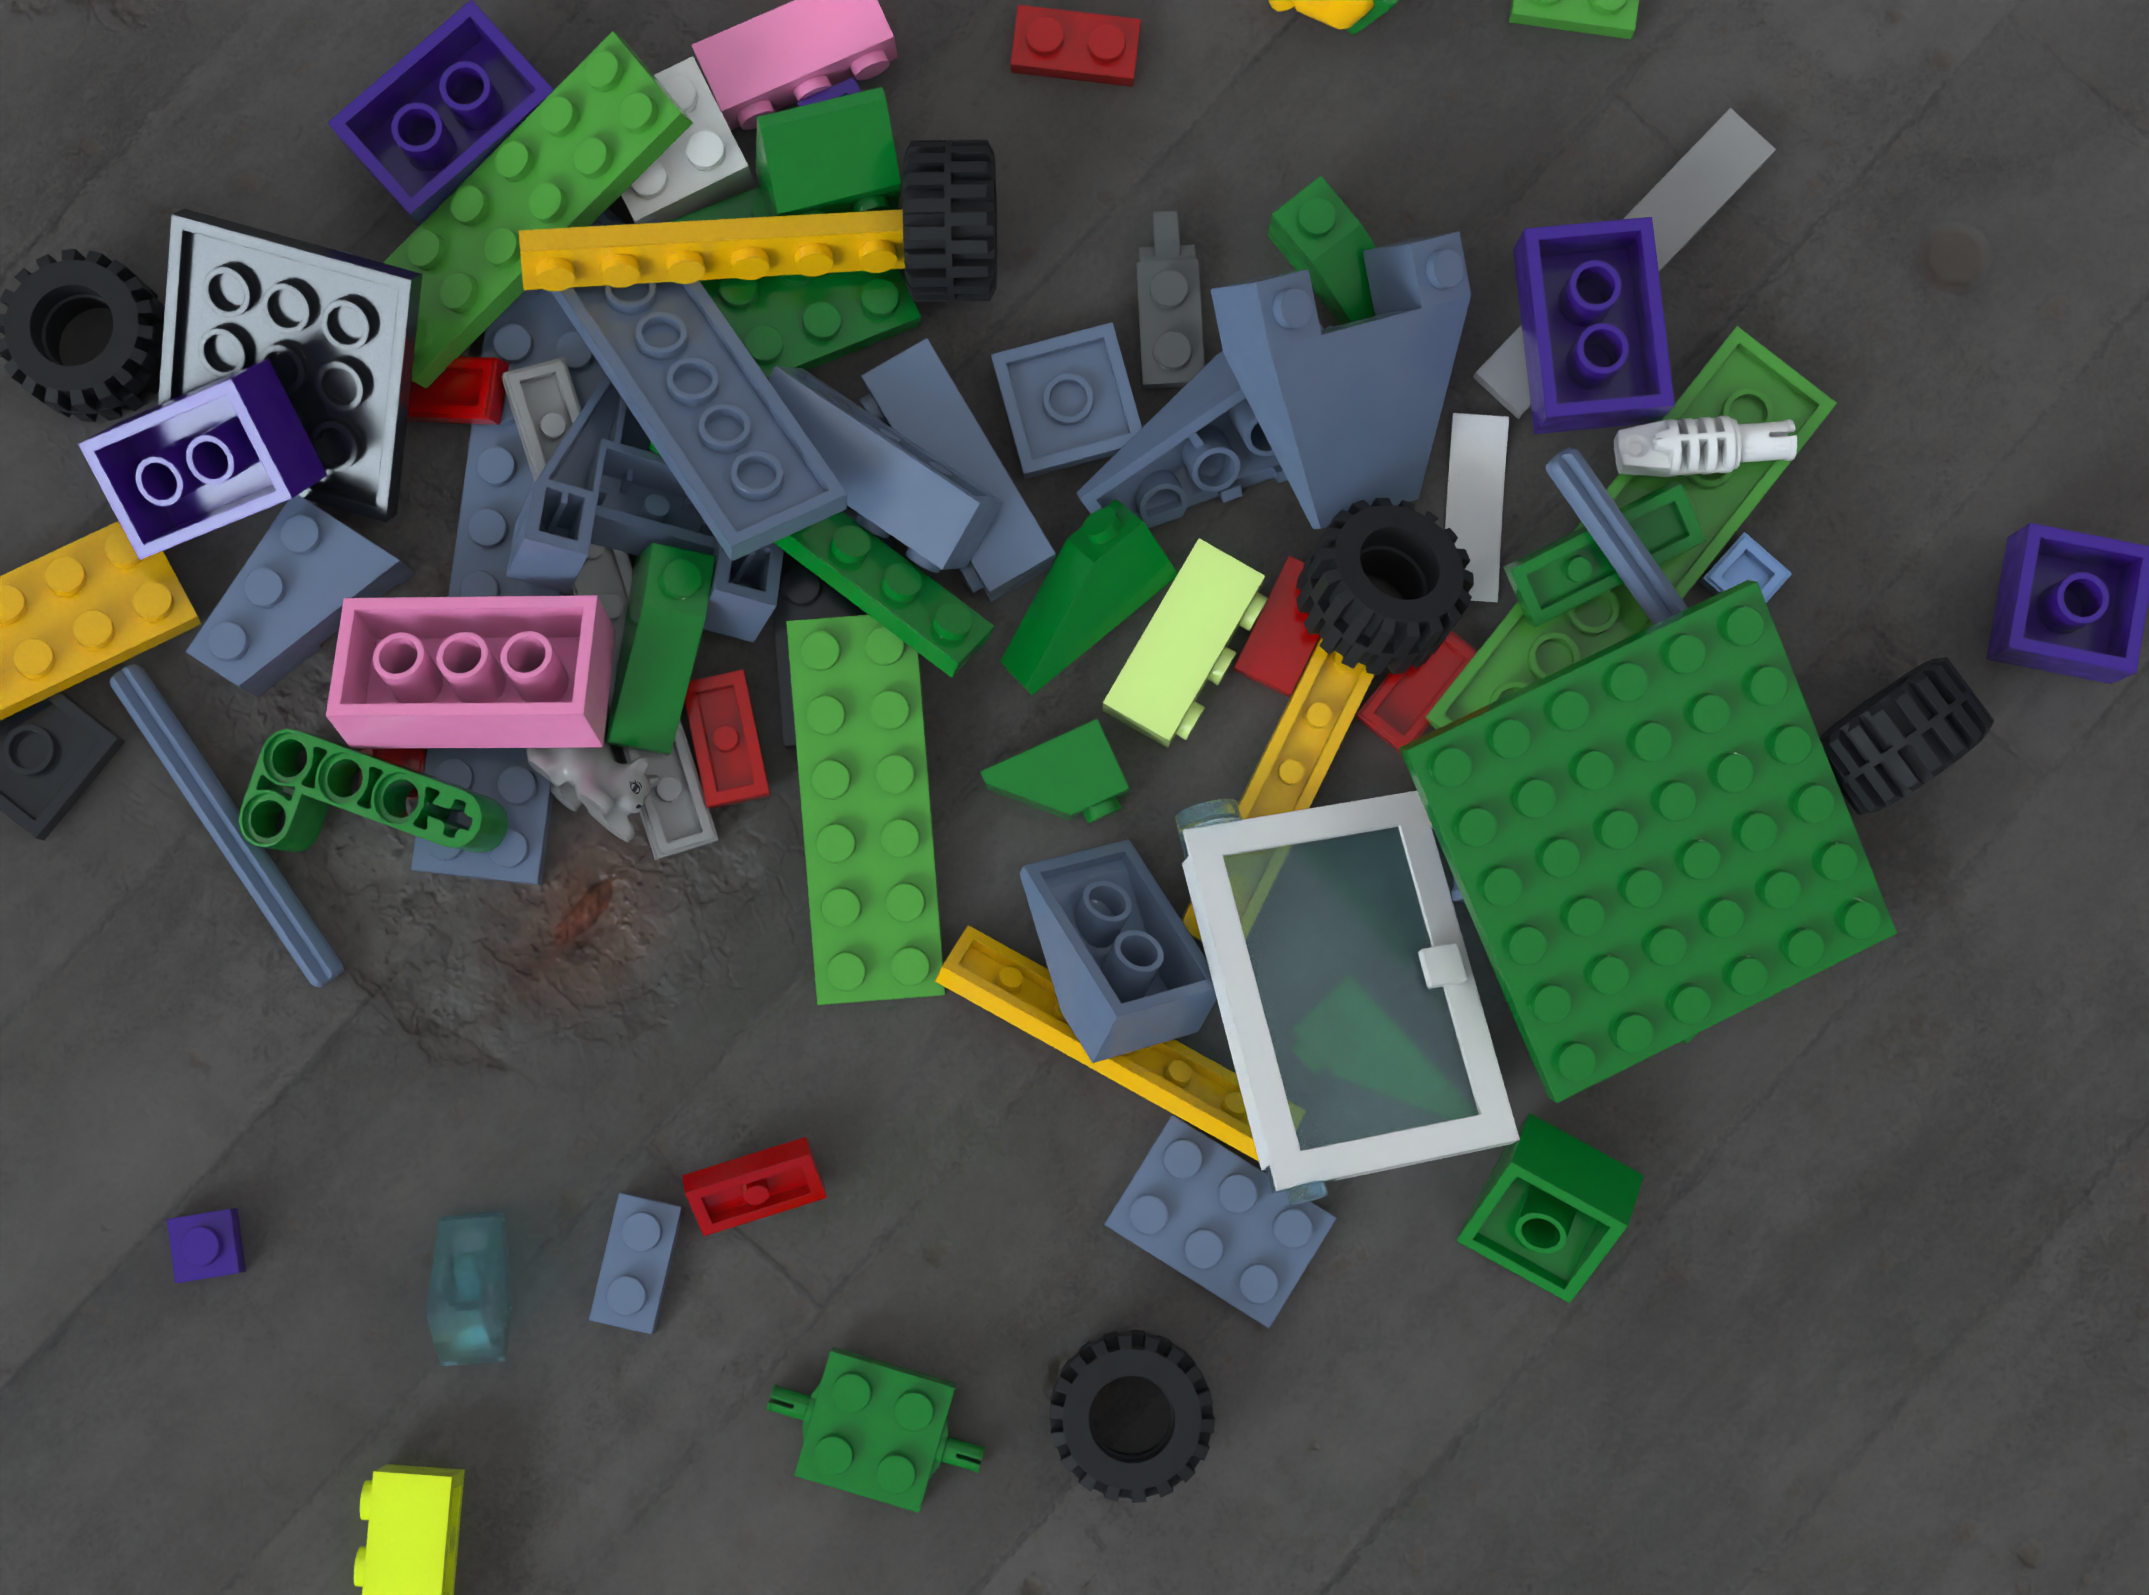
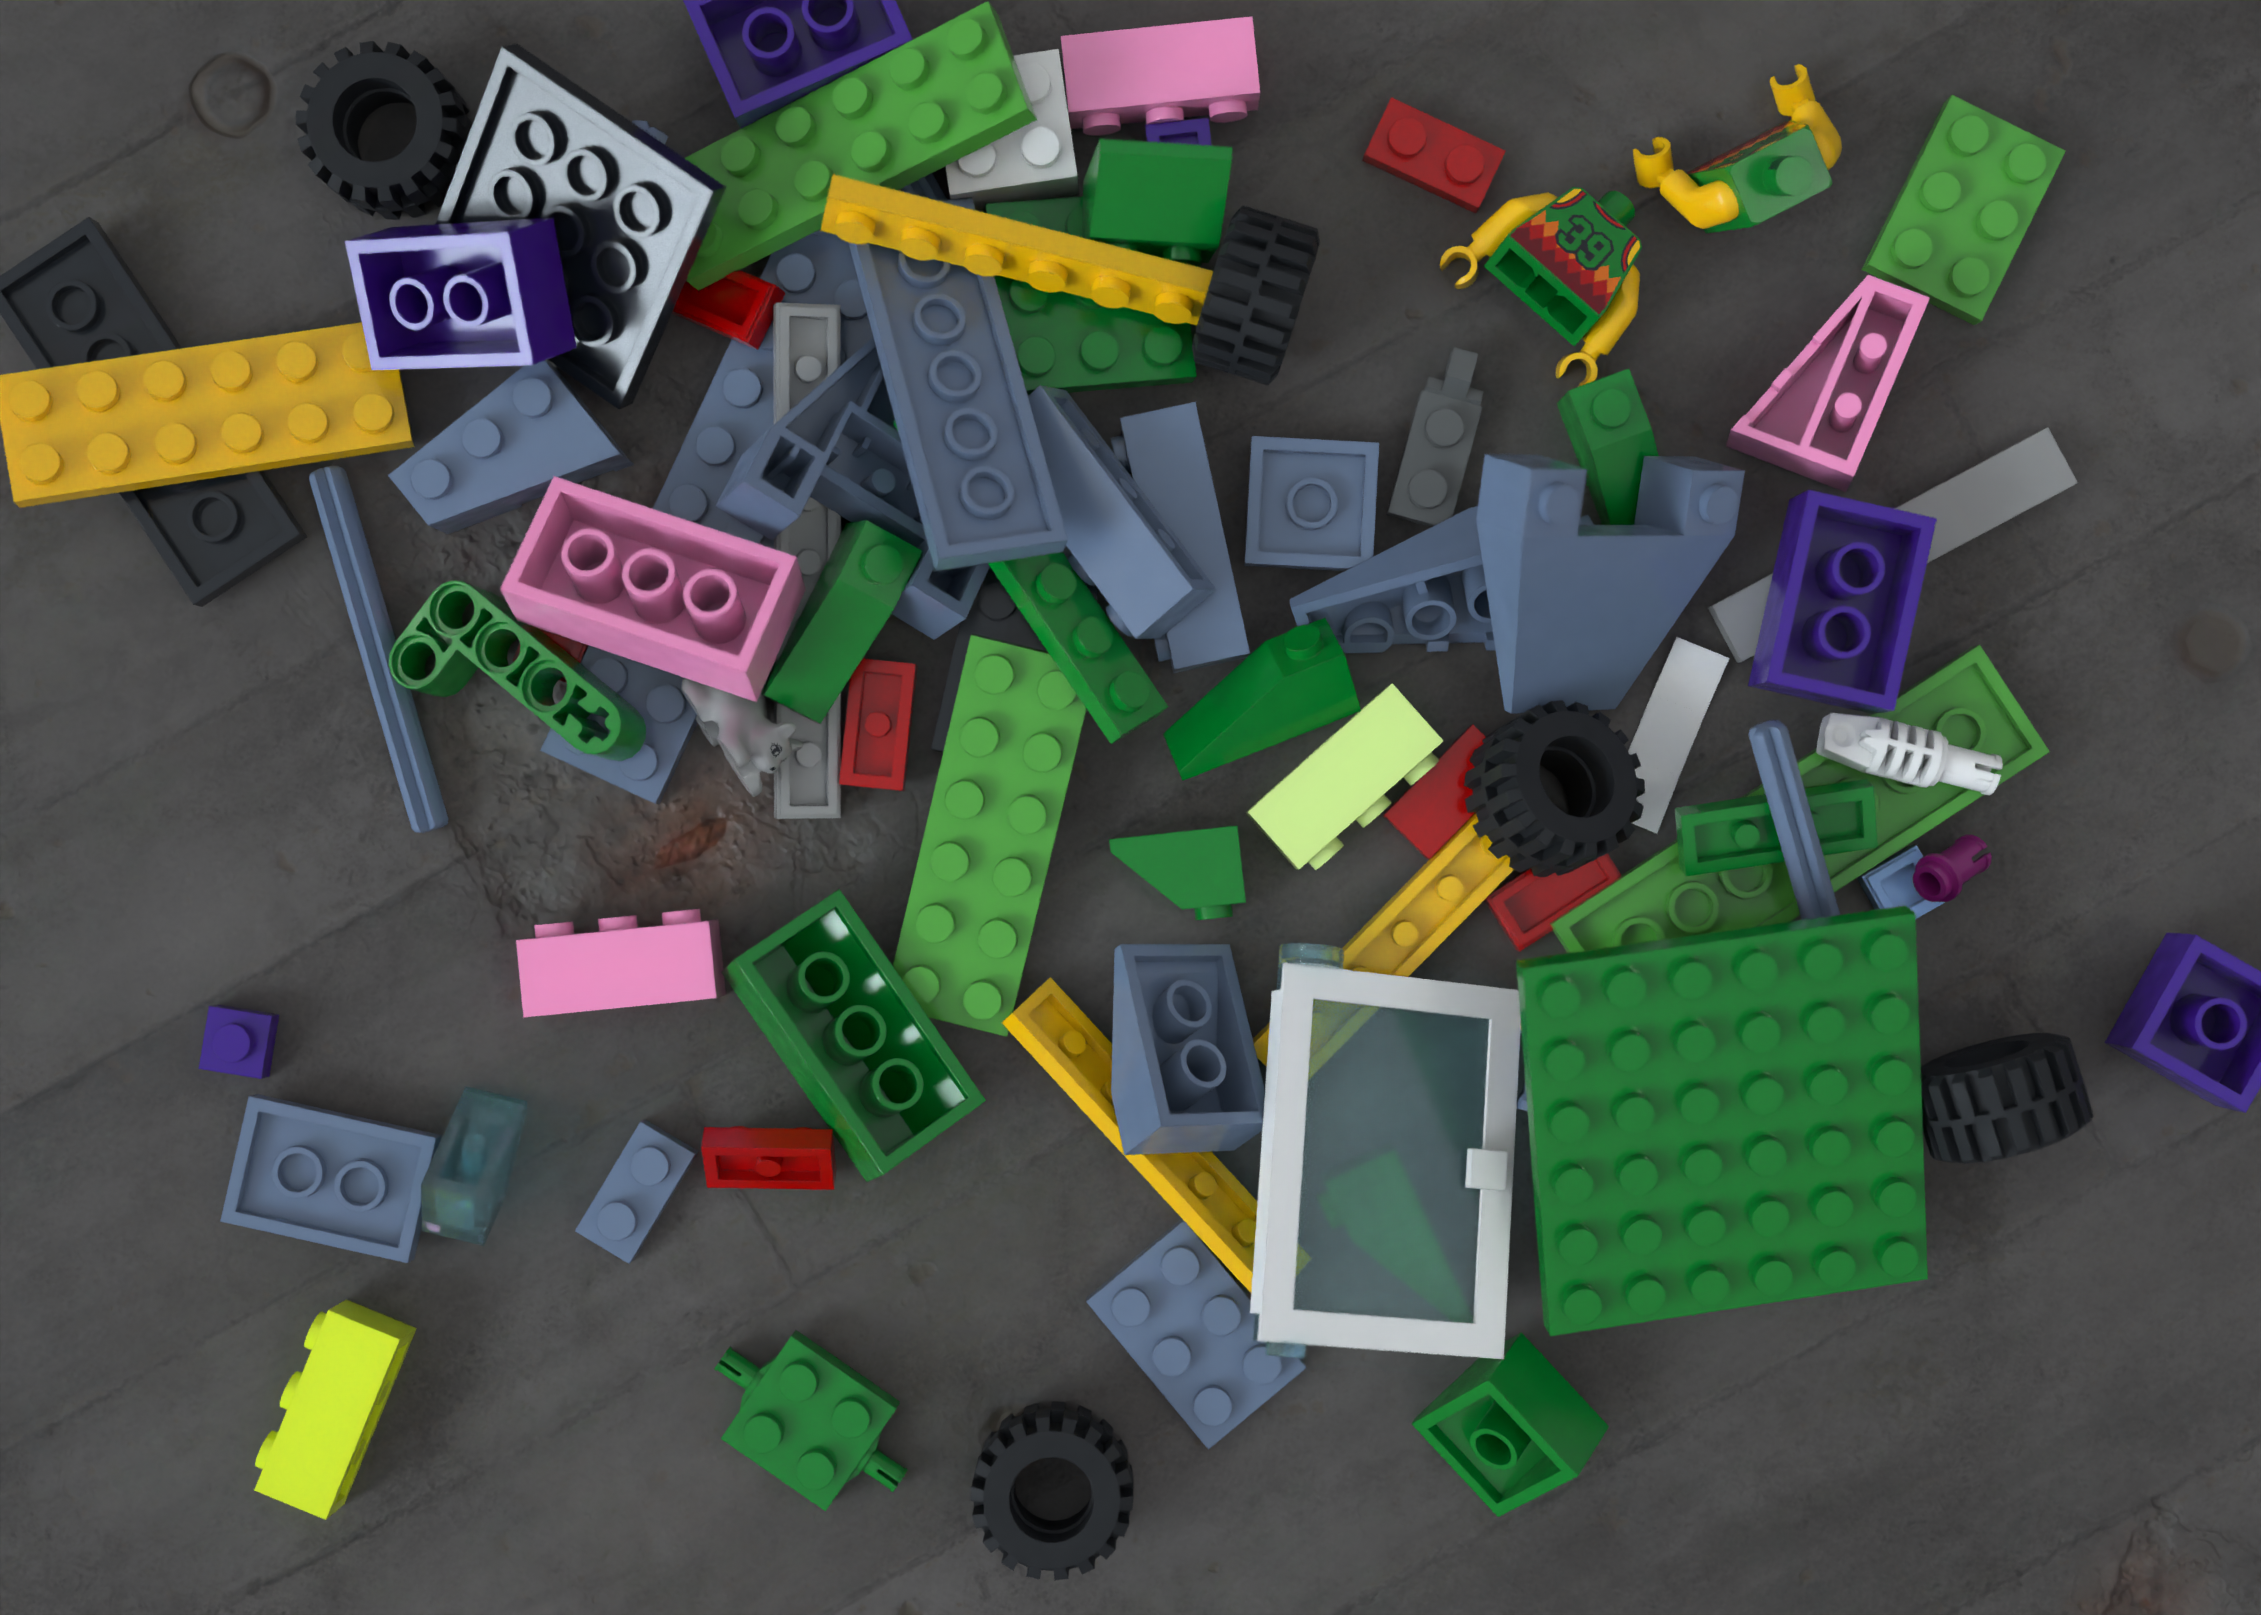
camera: 20 degrees right, 5 degrees up
(335, 1347) = (329, 1178): none -> sand blue plate
(552, 1047) = (620, 964): none -> bright pink brick
(796, 1040) = (853, 1036): none -> green slope
(1230, 100) = (1566, 263): none -> torso
(1519, 138) = (1833, 392): none -> bright pink wedge
(1777, 549) = (1942, 874): none -> magenta pin

